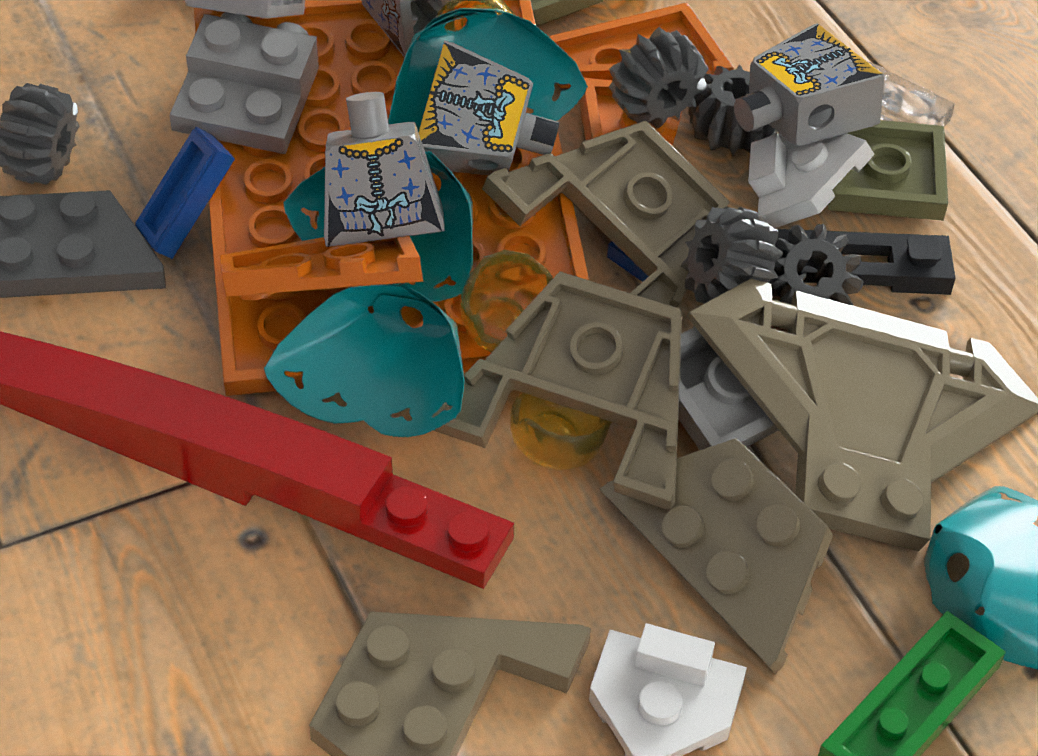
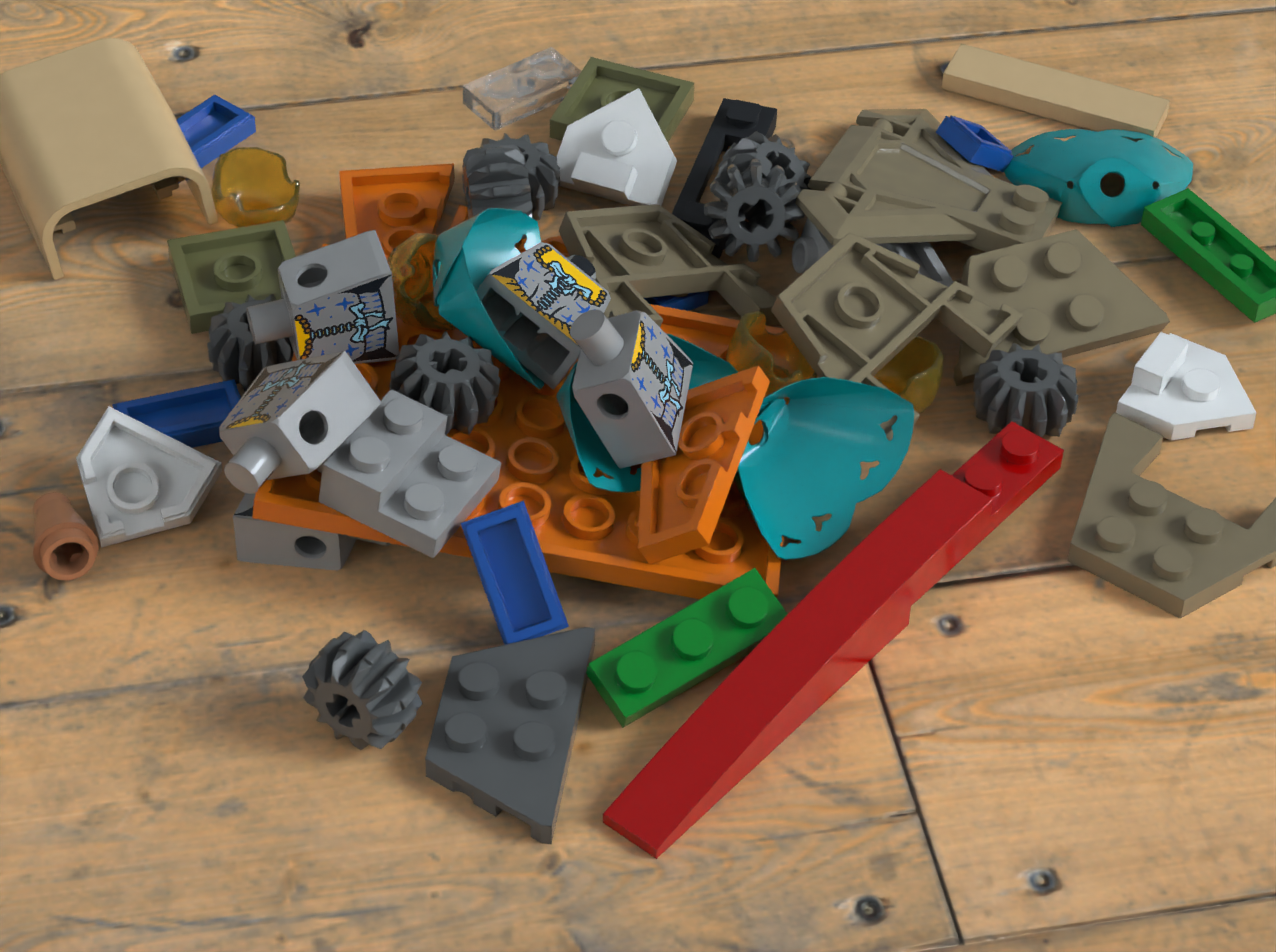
camera: 75 degrees left, 5 degrees down
(144, 330) = (686, 647): none -> green plate
(351, 69) = (449, 379): none -> dark grey gear
(584, 540) = (1026, 389): none -> dark grey gear
(811, 89) = (562, 97): light grey torso -> none
(987, 446) = (975, 143): none -> blue tile

